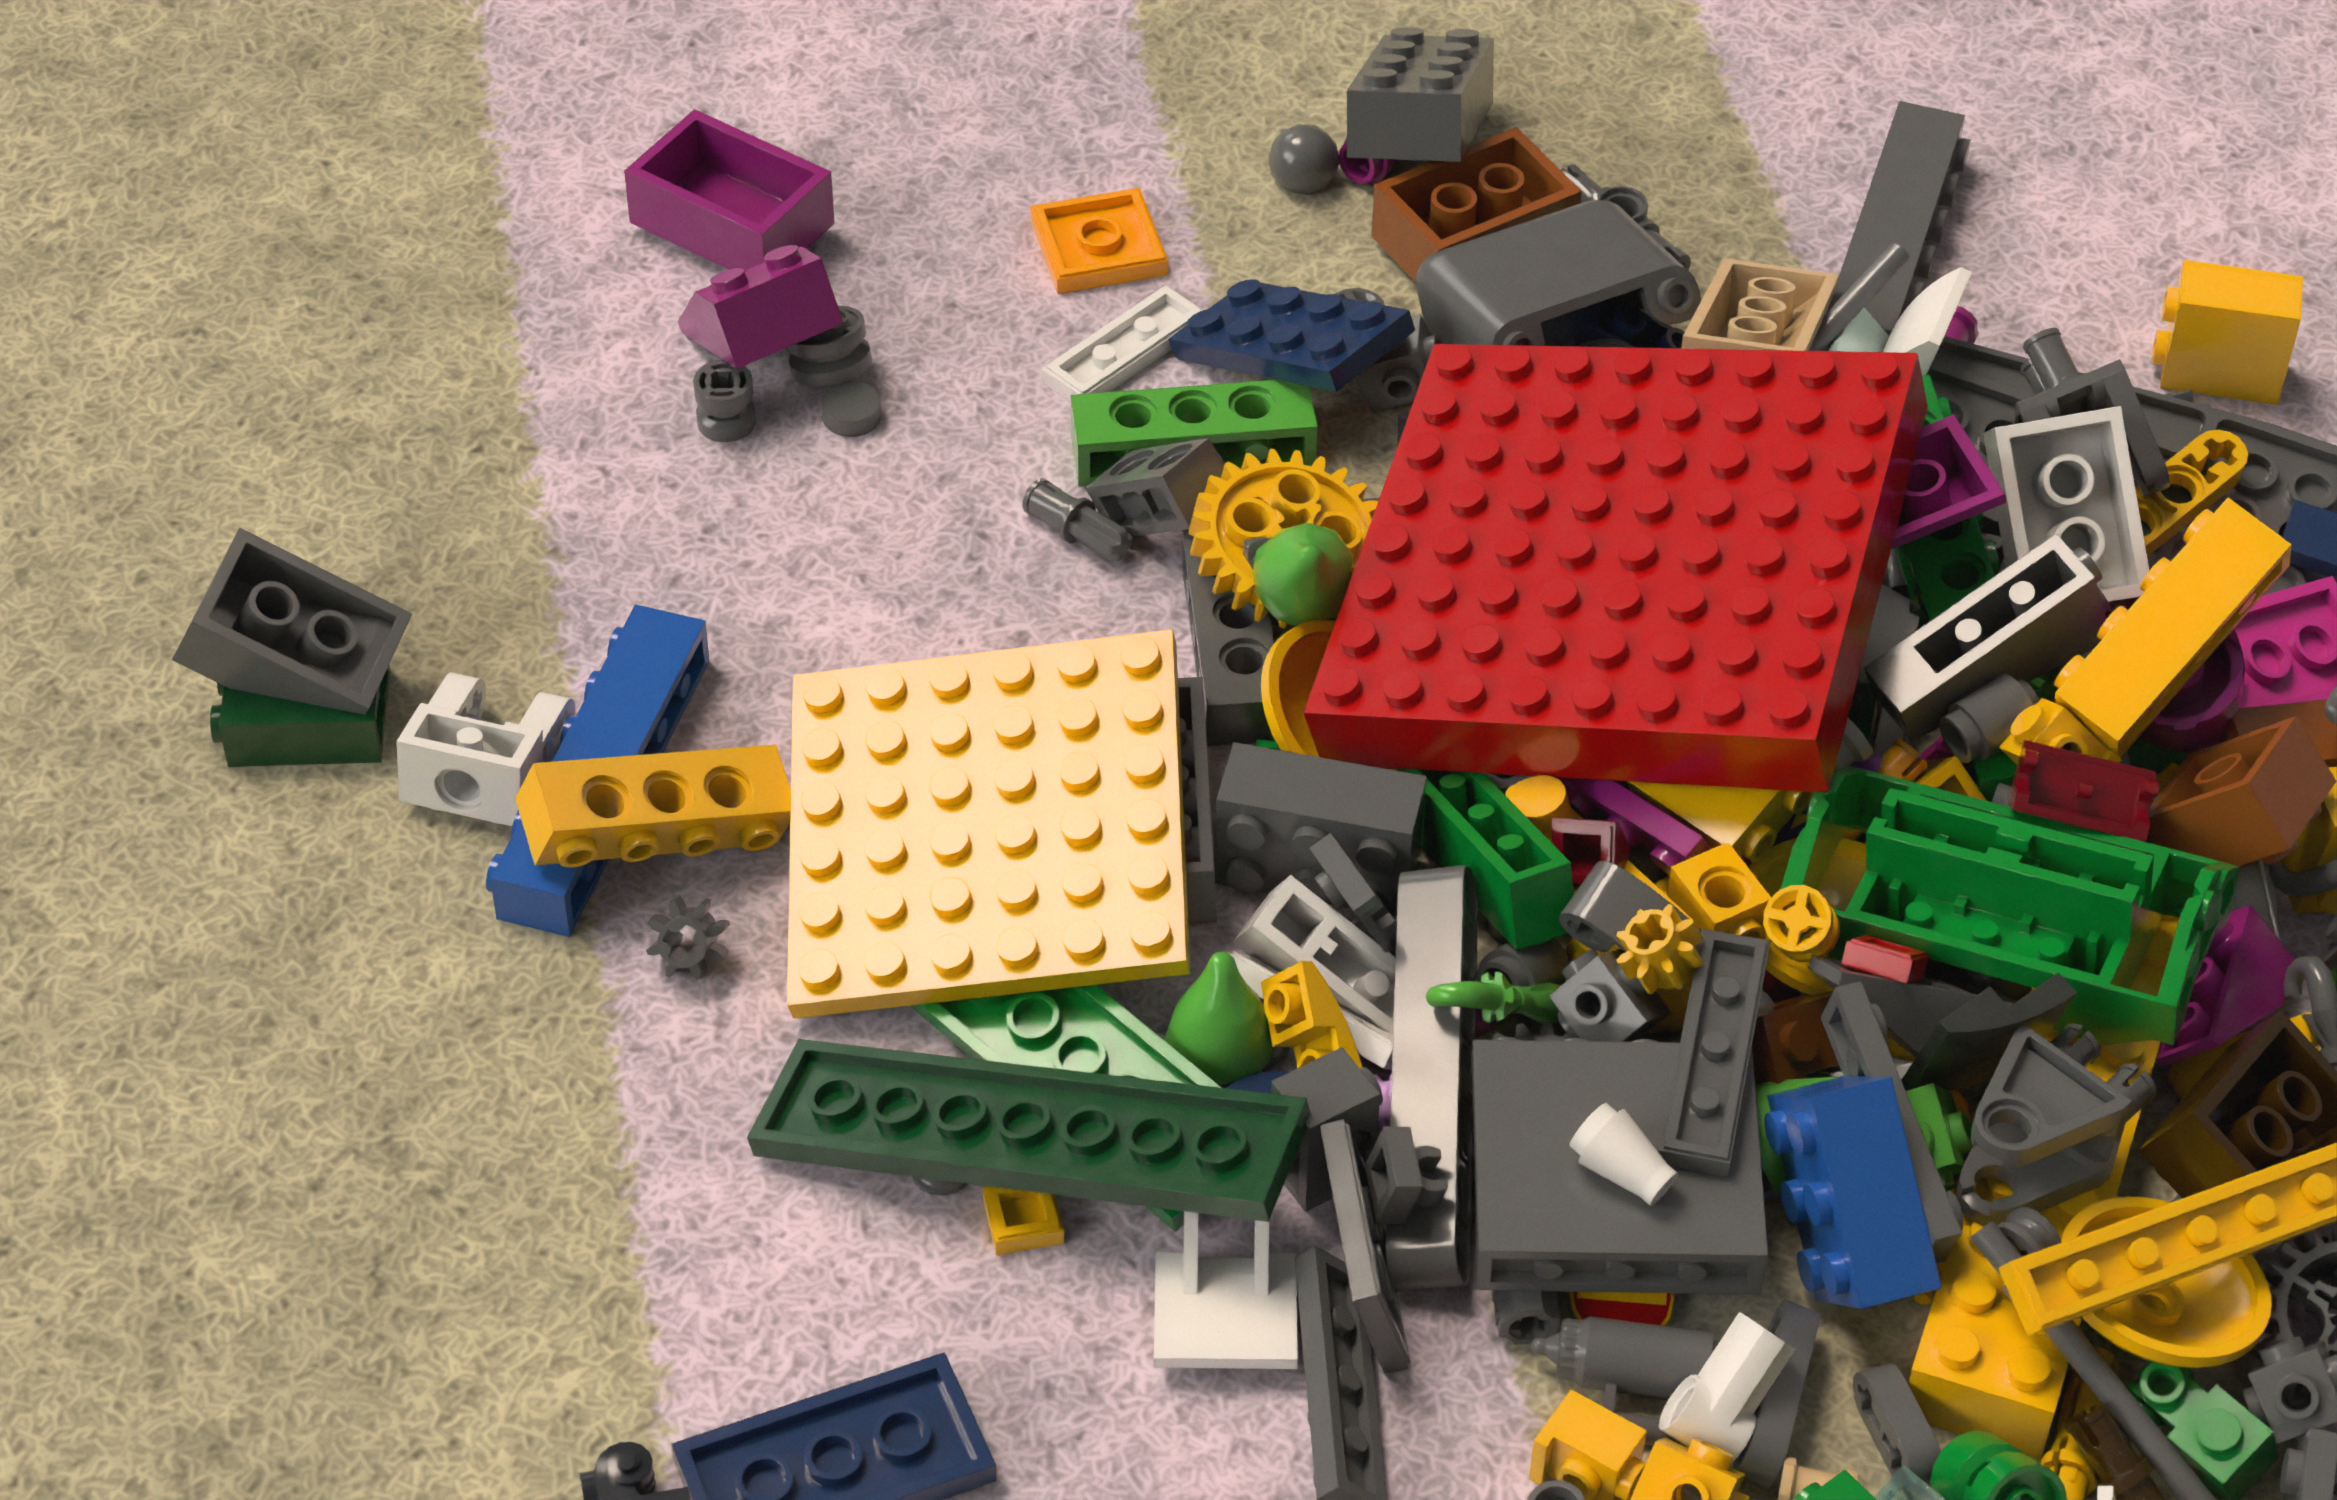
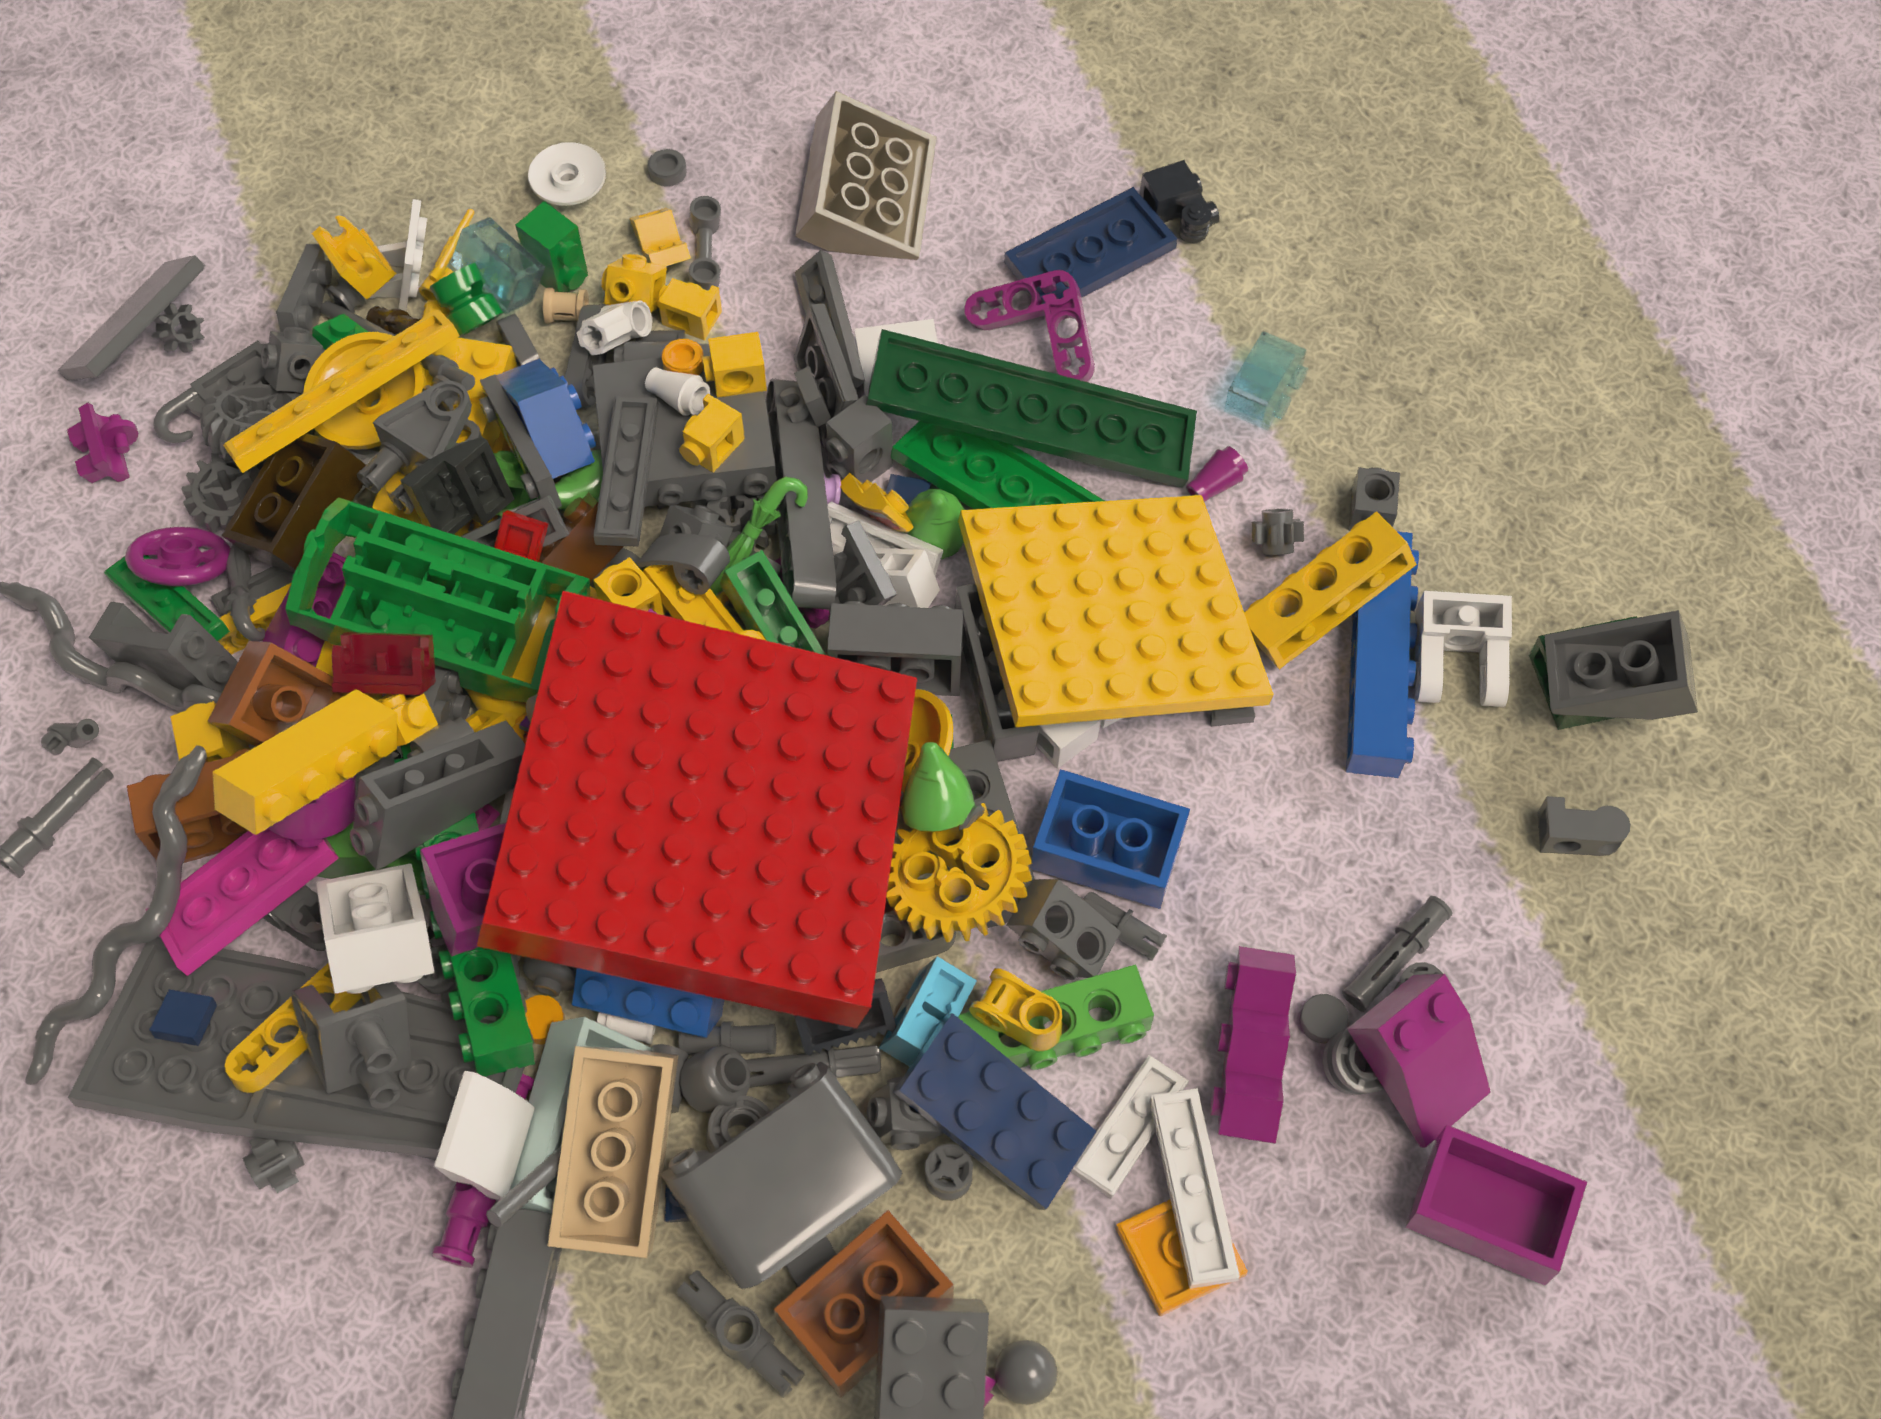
camera: 170 degrees right, 15 degrees up
(430, 531) = (1580, 830): none -> dark grey leg
(518, 964) = (1378, 484): none -> dark grey brick
(612, 1173) = (1266, 380): none -> clear light blue brick
(711, 457) = (1430, 917): none -> dark grey pin
(744, 1046) = (1218, 474): none -> magenta cone
(945, 1347) = (1054, 310): none -> magenta beam
(951, 373) = (1254, 1045): none -> magenta brick
(1065, 577) = (1109, 838): none -> blue brick
(1070, 268) = (1194, 1189): none -> white tile
(1239, 390) = (1012, 1004): none -> yellow piece
(1356, 431) = (934, 993): none -> medium azure brick
(1522, 1176) = (735, 364): none -> yellow brick
(1571, 1063) = (712, 434): none -> yellow brick
(1588, 842) = (716, 615): dark red slope -> none
(1610, 1227) = (683, 357): none -> light orange tile
(1660, 949) = (662, 514): yellow gear -> none
(1794, 912) = (573, 549): yellow wheel -> none
(2228, 331) = (218, 1254): yellow piece -> none

